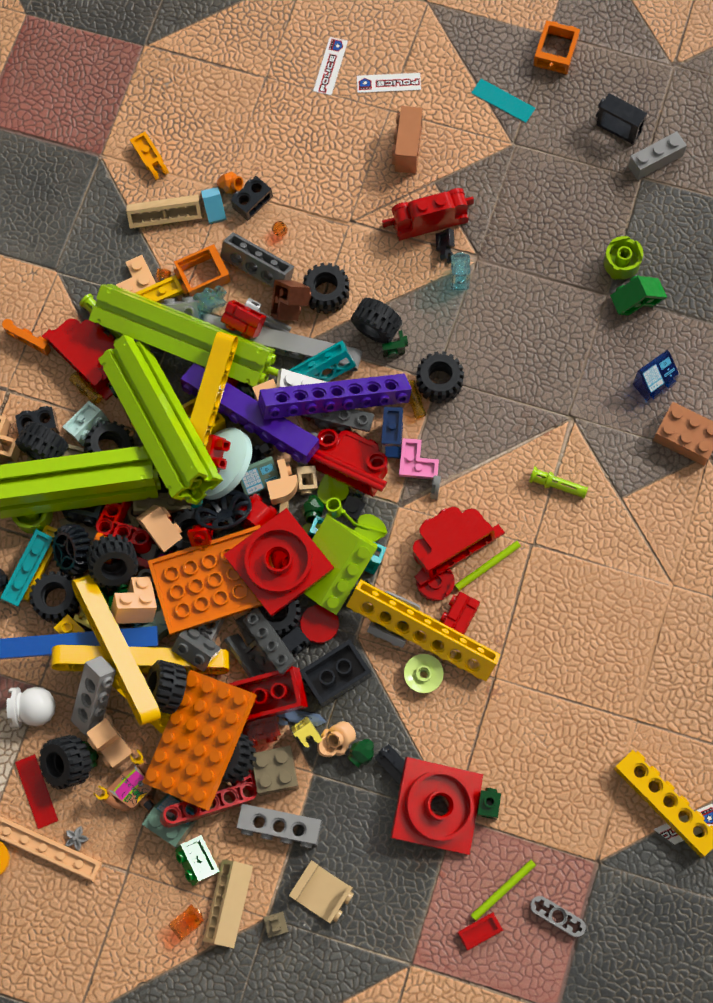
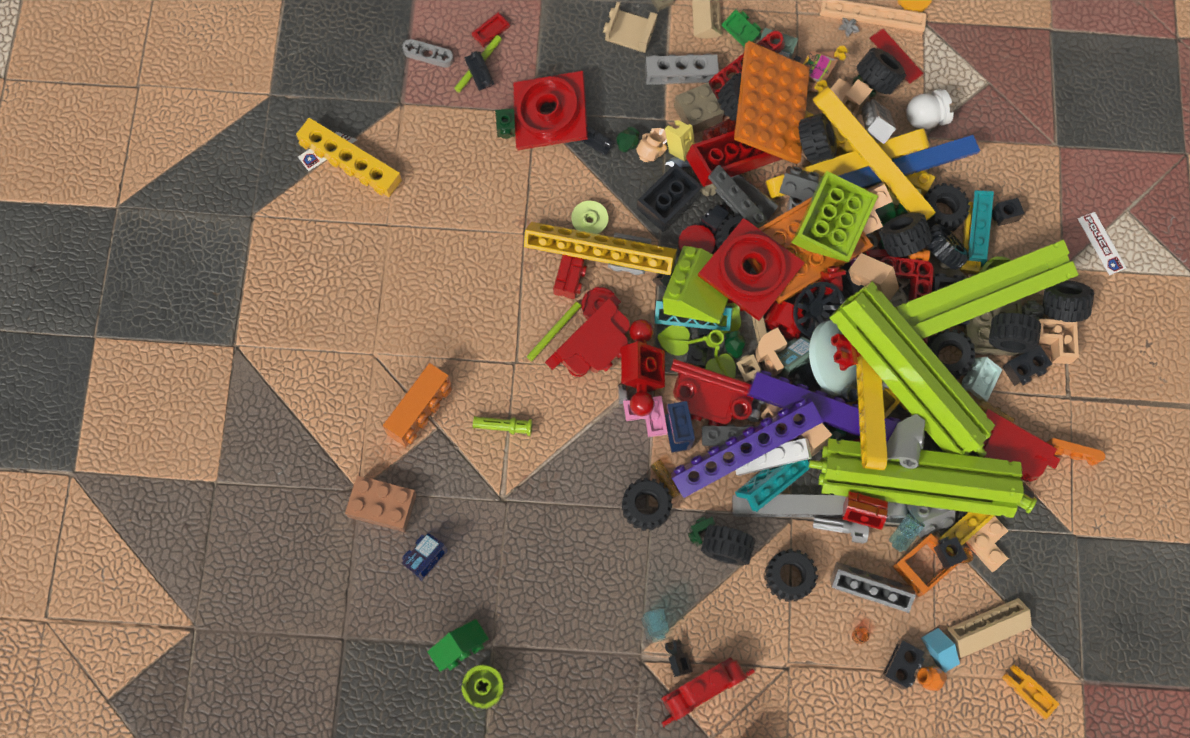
camera: 155 degrees right, 0 degrees up
(176, 261) = (958, 552): none -> black brick
(180, 588) = (834, 218): none -> lime slope
(187, 359) = (907, 441): none -> light grey panel
(222, 423) = (849, 396): none -> black hinge
(288, 299) = (825, 547): copper brick -> none
(411, 500) = (642, 367): none -> red brick
(504, 875) = (479, 70): none -> black hinge
(638, 513) = (418, 405): none -> orange piece

